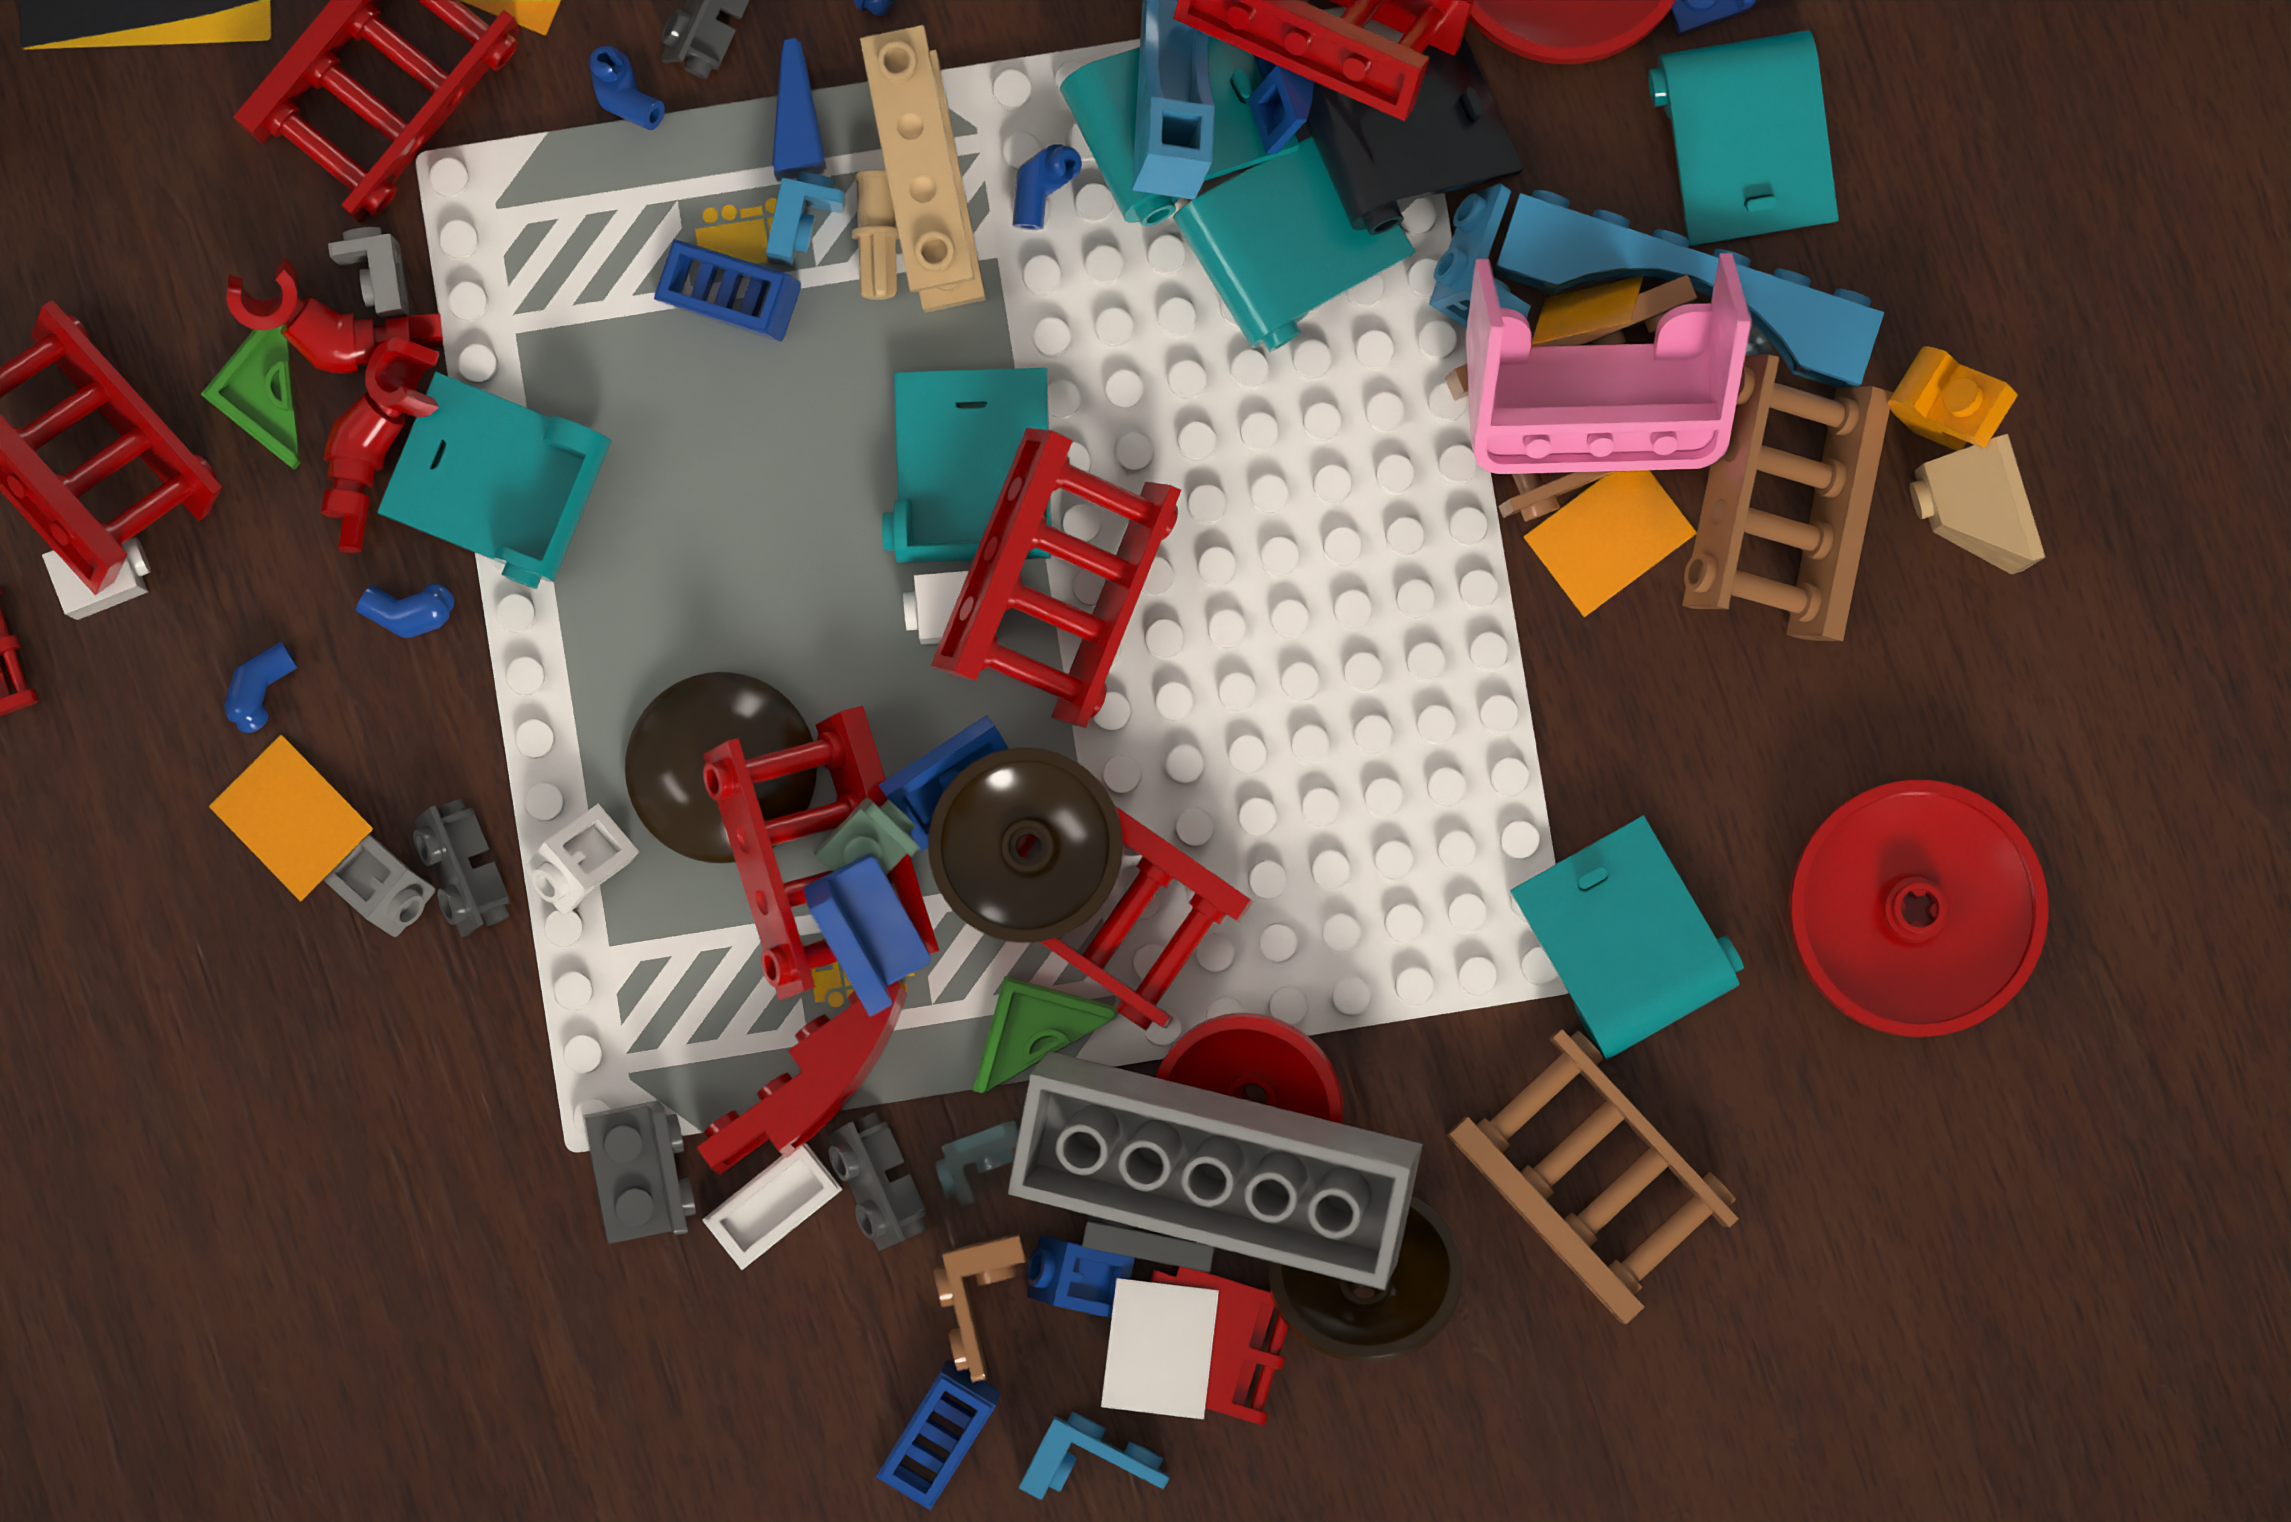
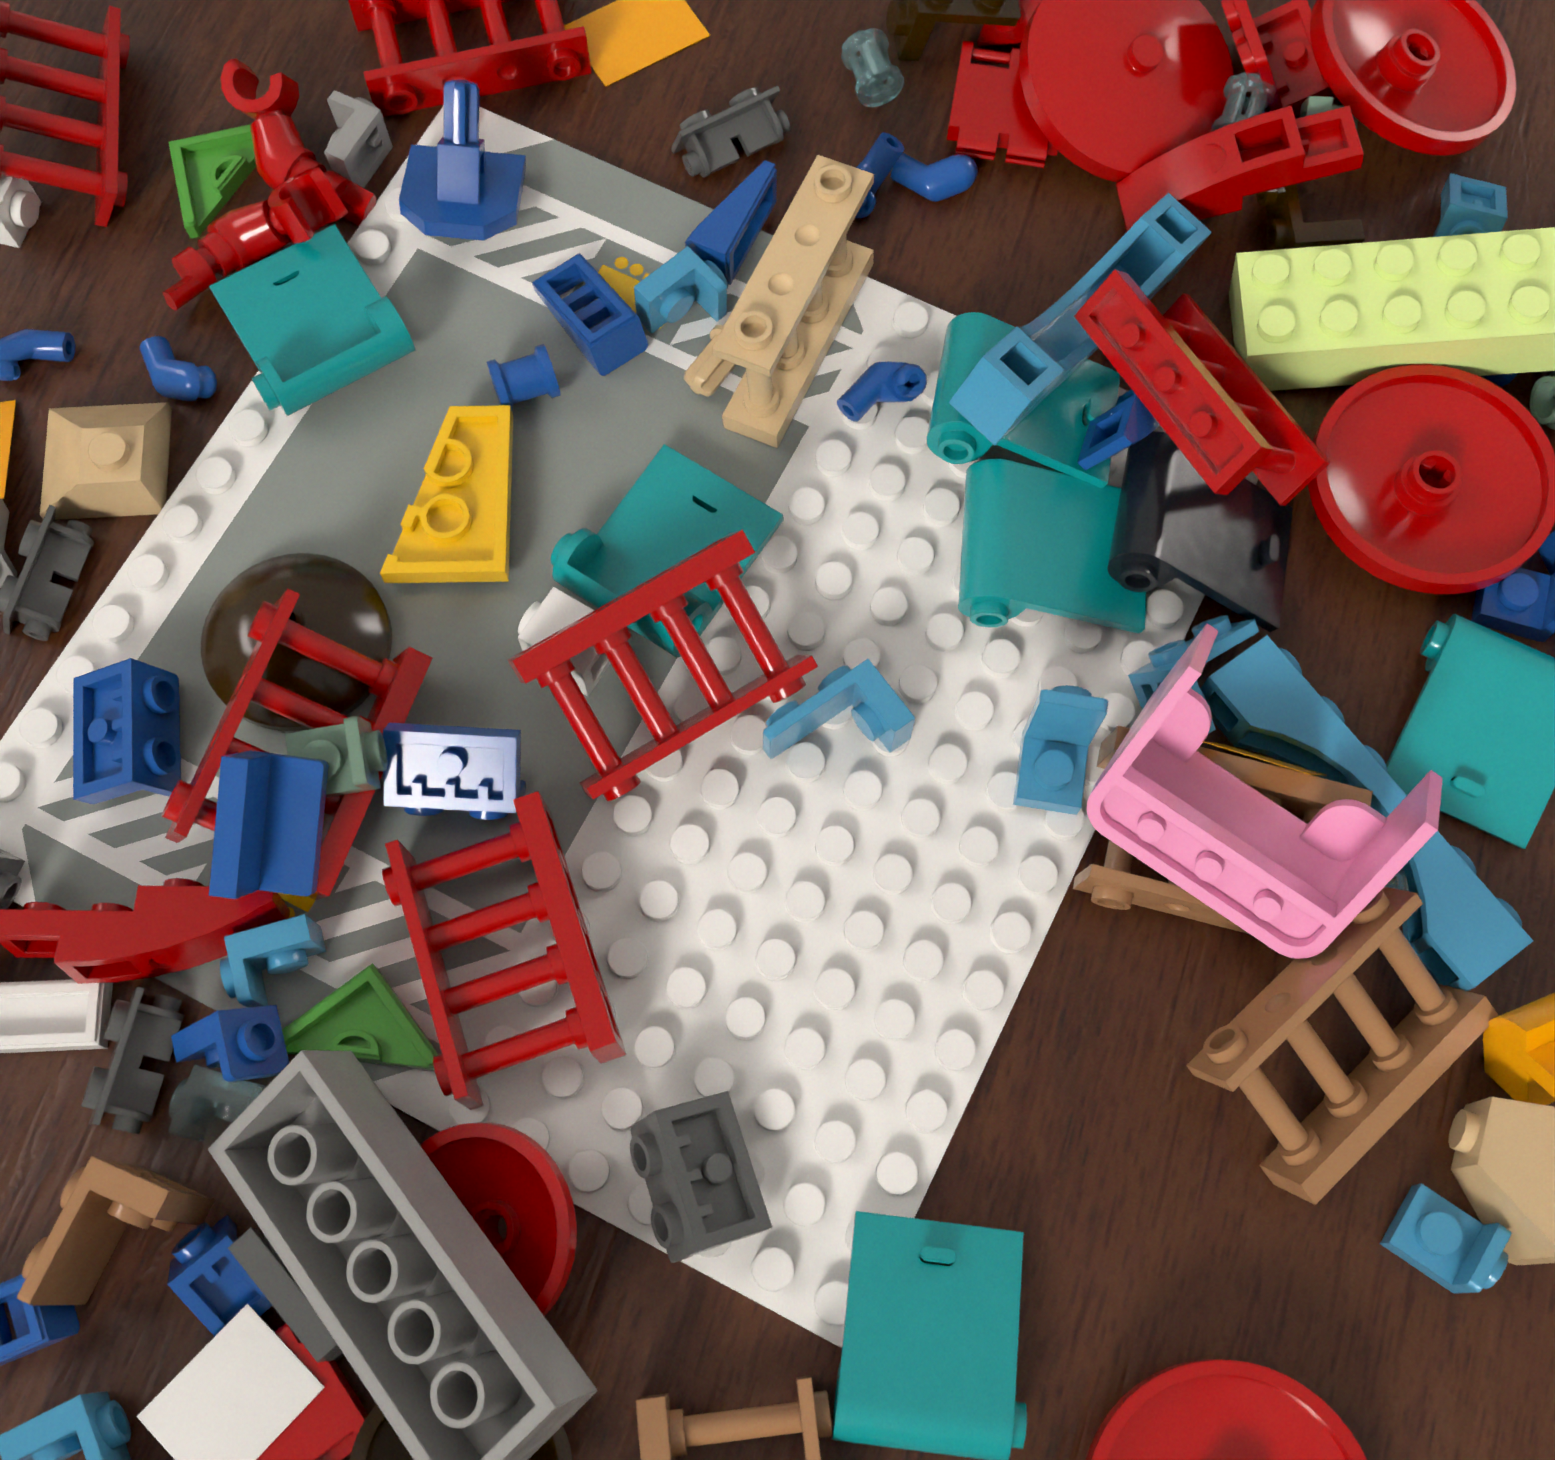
camera: 40 degrees right, 15 degrees down
(413, 730) = (106, 460): none -> tan slope
(524, 252) = (458, 185): none -> blue piece
(579, 859) = (127, 623): white bracket -> none
(618, 89) = (626, 140): blue arm -> none
(656, 944) = (125, 731): none -> blue bracket
(726, 399) = (524, 377): none -> blue bush
(766, 550) = (463, 506): none -> yellow wing
(927, 1018) = (274, 947): none -> dark azure bracket
(962, 1100) = (240, 1041): none -> blue bracket
(978, 837) = (437, 818): dark brown dish -> none
(1251, 490) = (875, 711): none -> dark azure bracket
(1377, 950) = (698, 1176): none -> dark grey bracket
(1418, 423) = (1057, 749): none -> dark azure bracket
(1609, 536) = (1154, 971): light orange sticker -> none
(1957, 594) = (1447, 1242): none -> dark azure bracket

